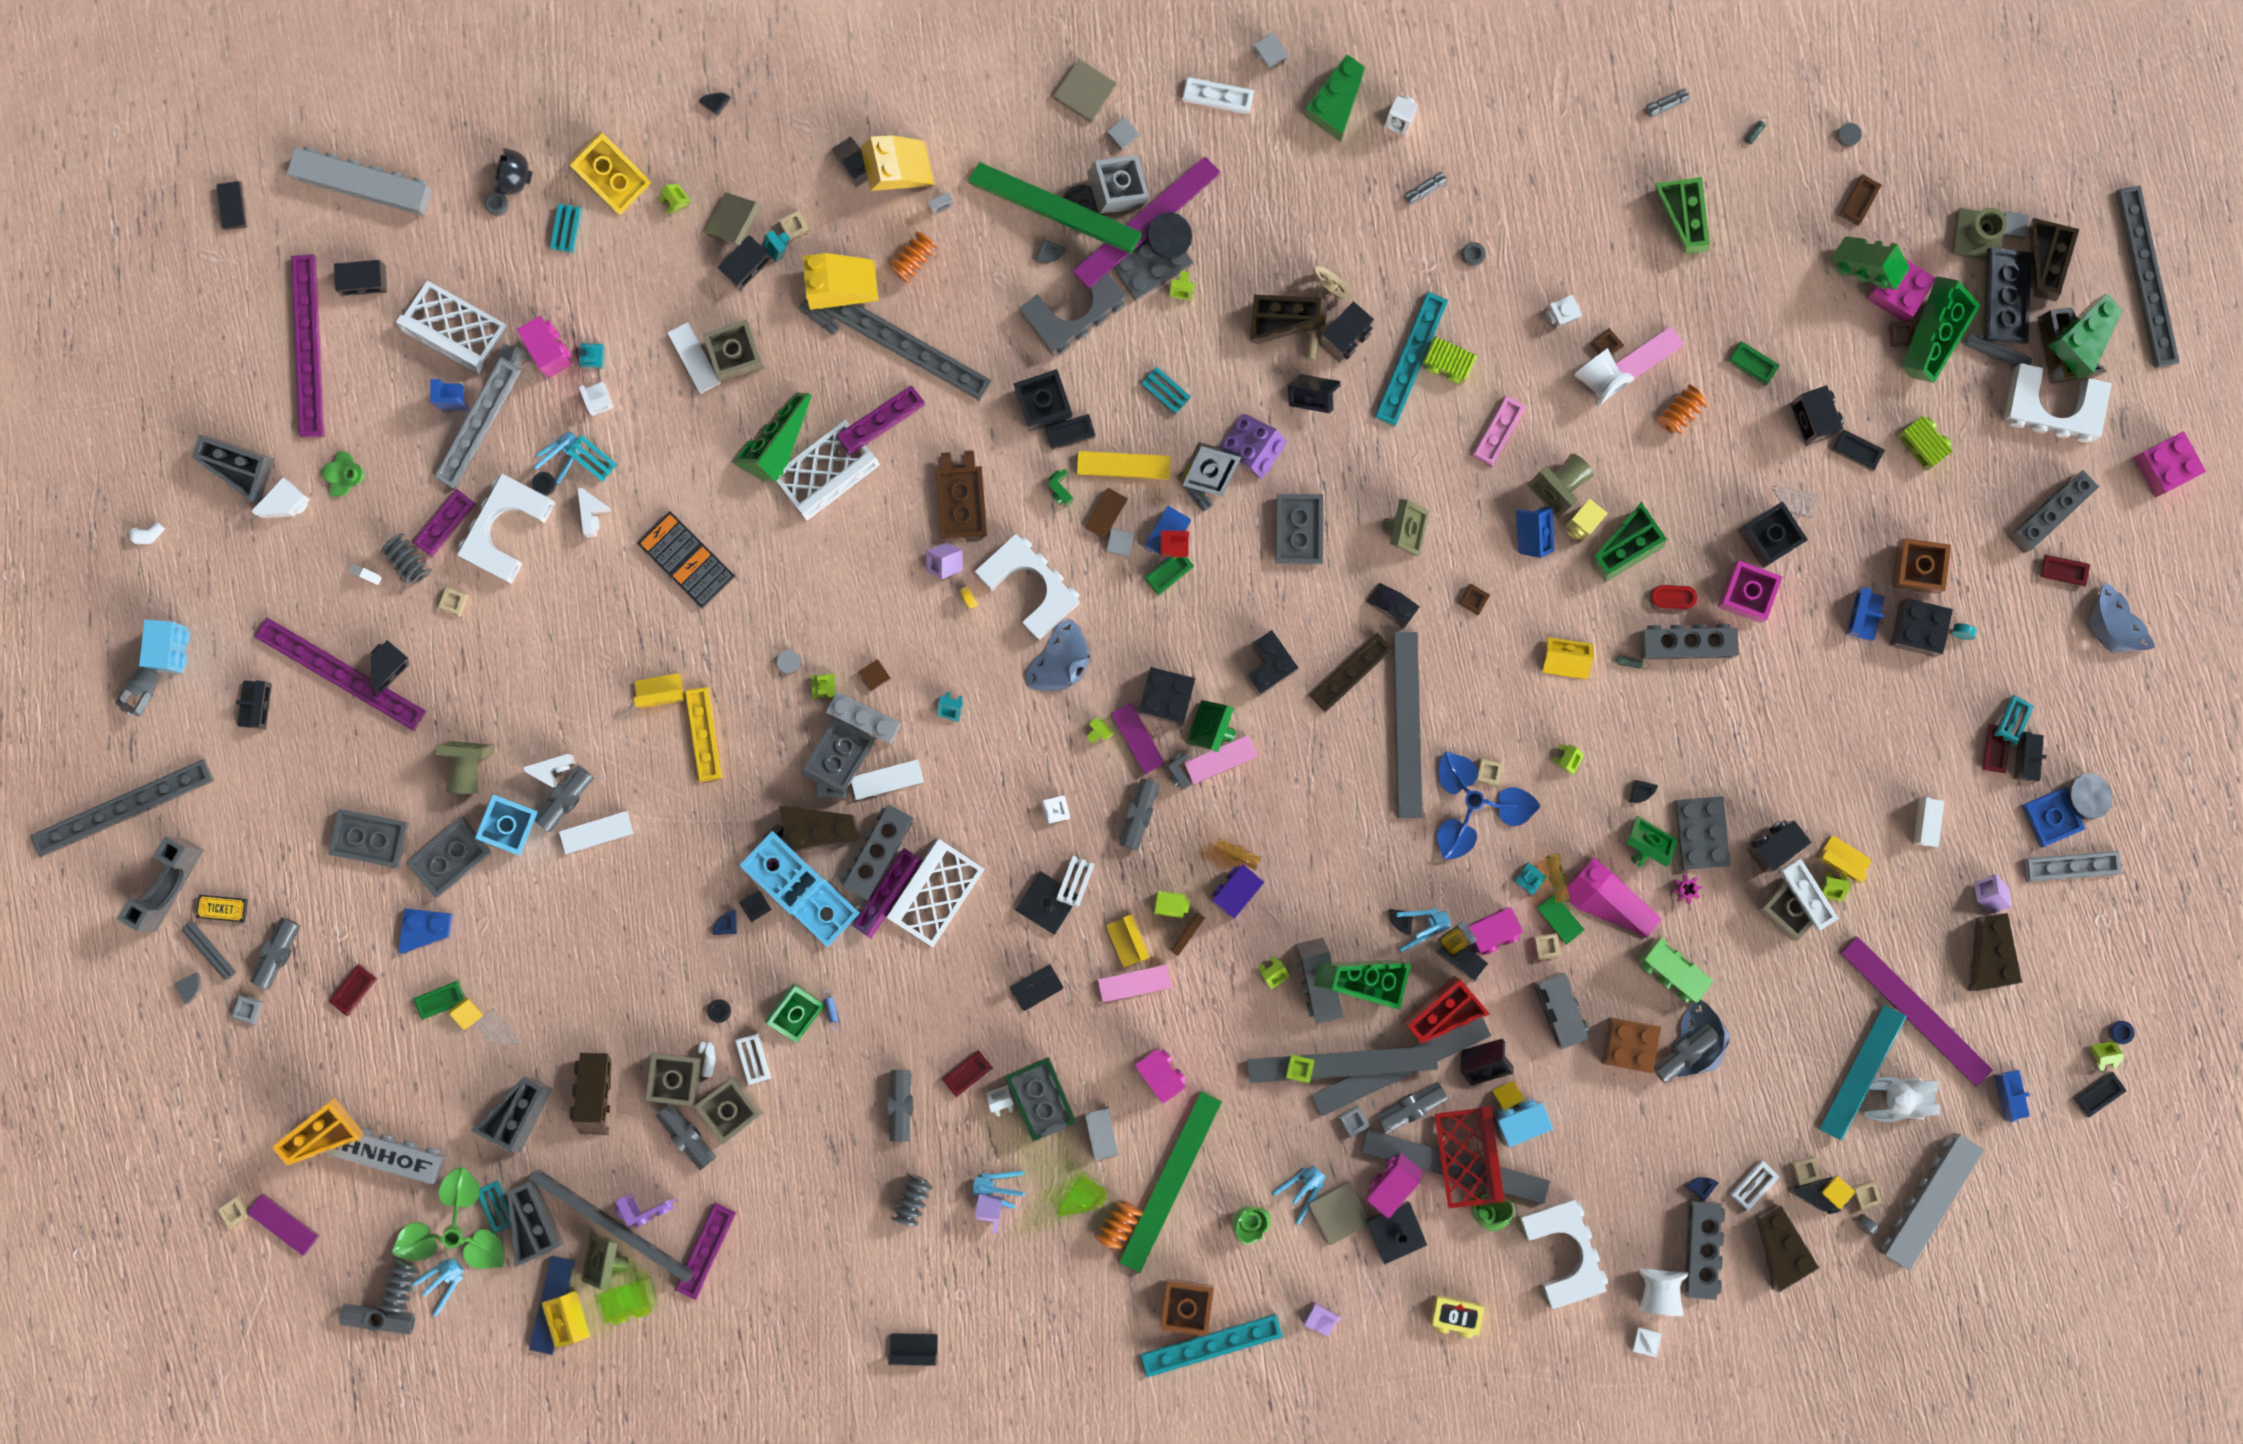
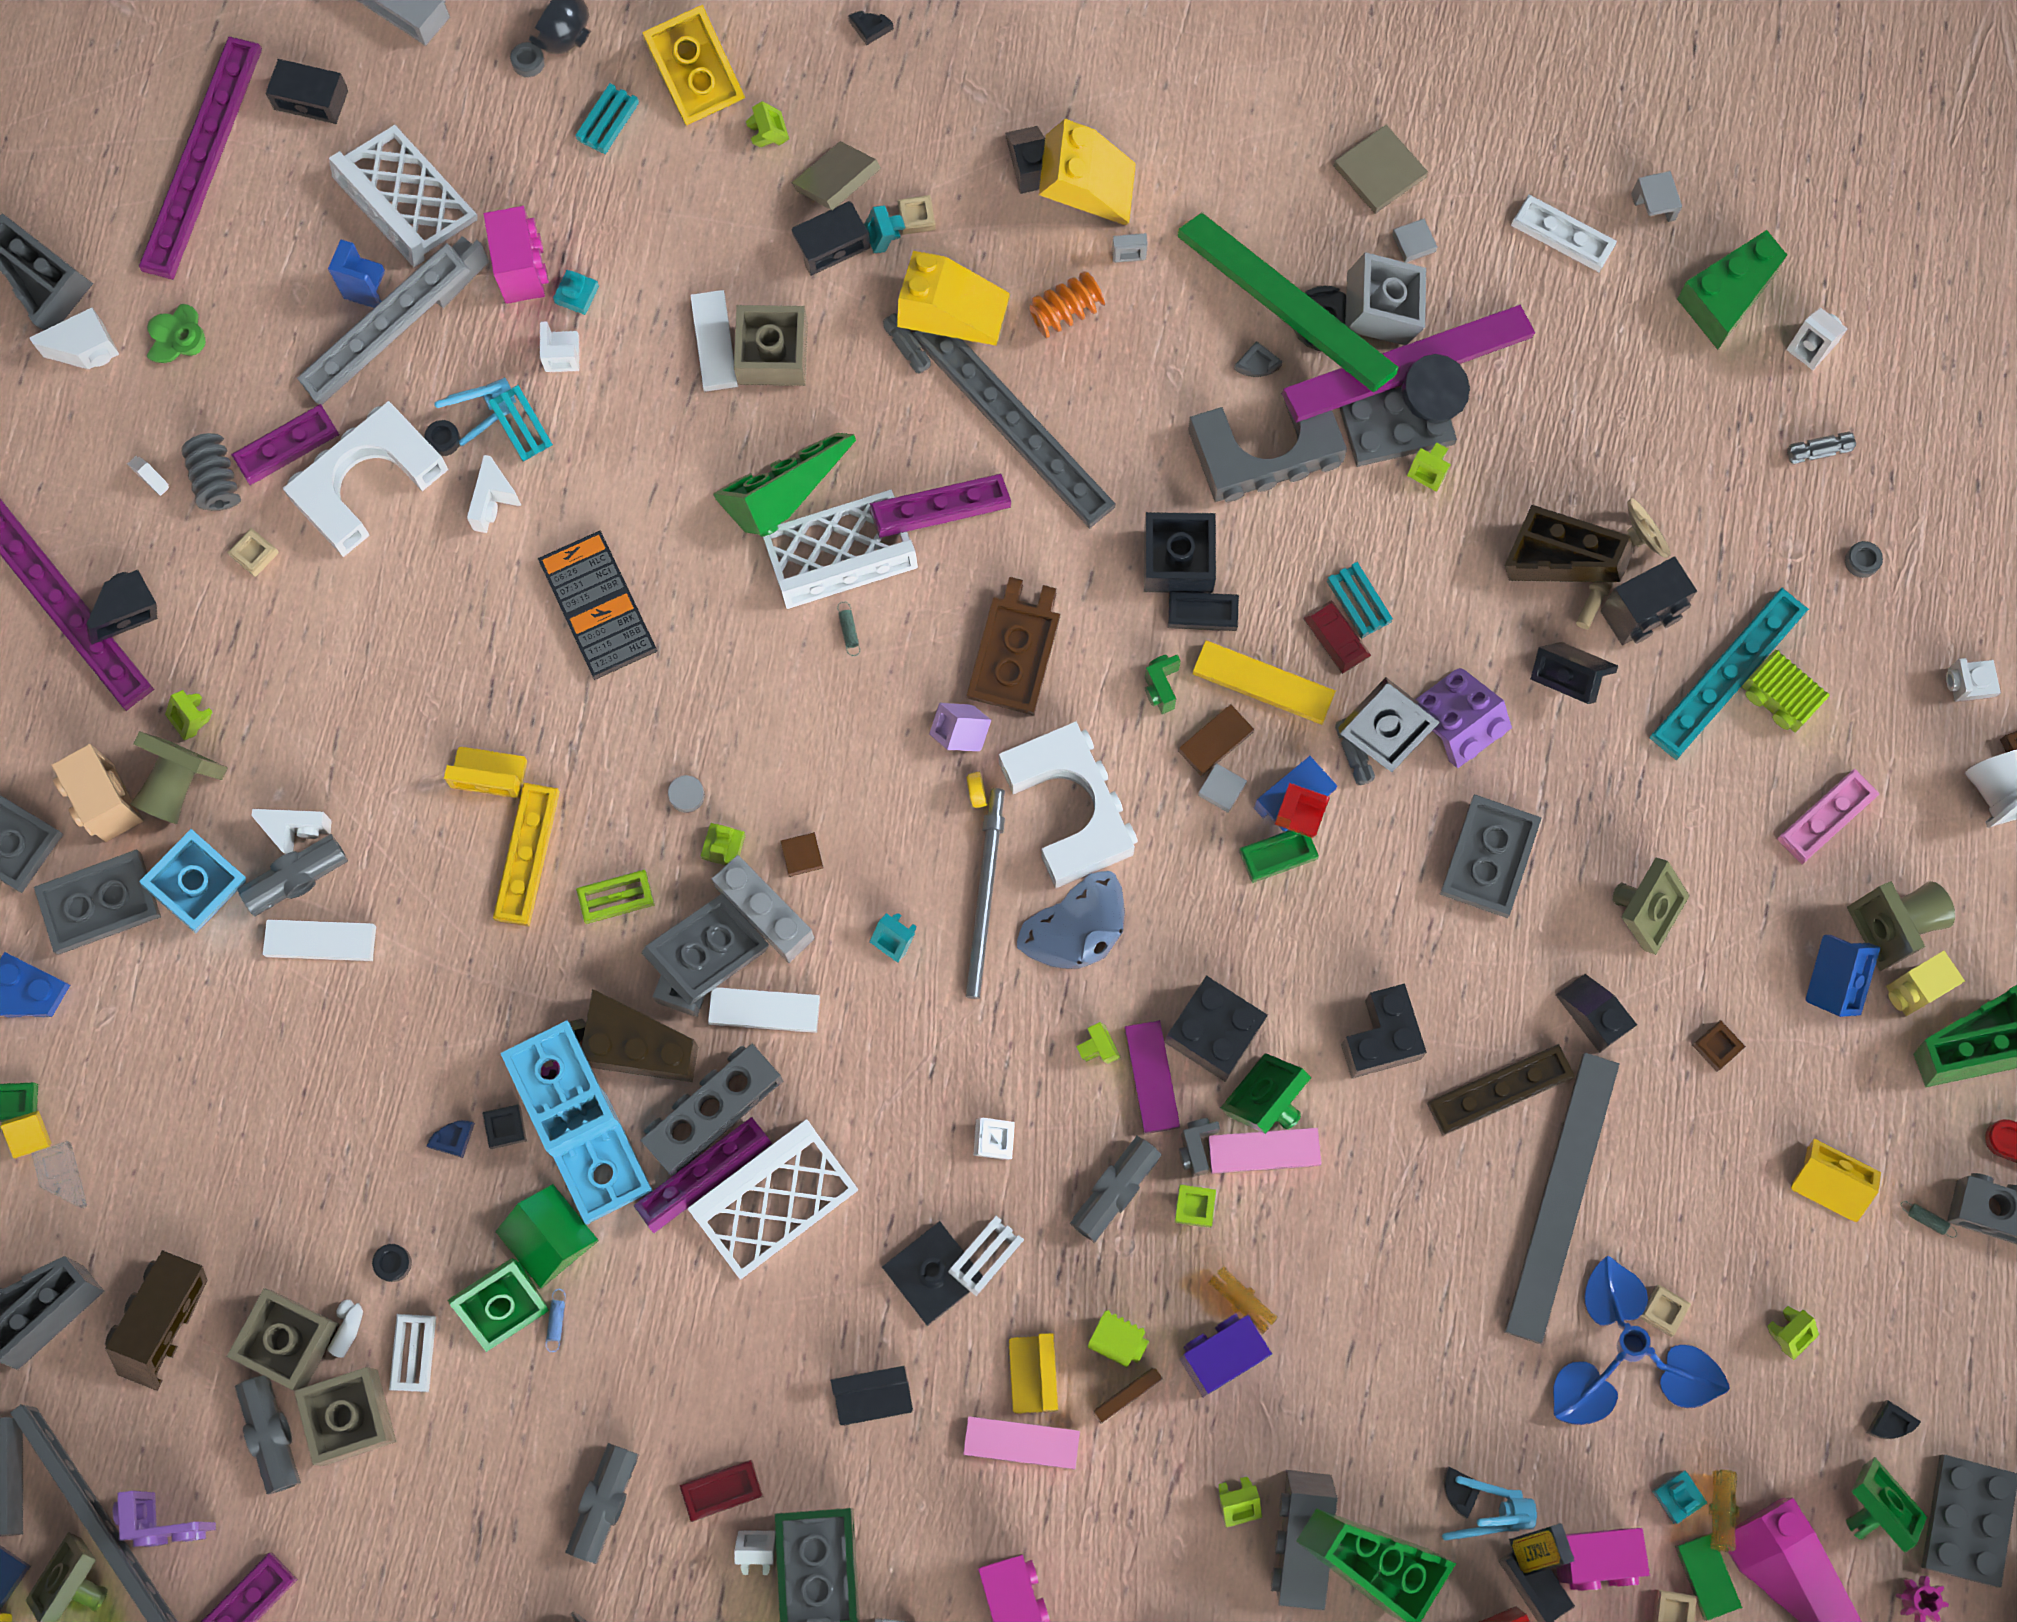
camera: 20 degrees right, 10 degrees down
(422, 791) = (96, 793): none -> light nougat brick
(455, 722) = (184, 714): none -> lime tile
(775, 748) = (590, 917): none -> lime tile
(806, 961) = (545, 1234): none -> green slope
(850, 519) = (848, 628): none -> sand green piece
(987, 616) = (993, 826): none -> flat silver bar
(1159, 419) = (1337, 636): none -> dark red tile
(1190, 808) = (1195, 1206): none -> lime tile

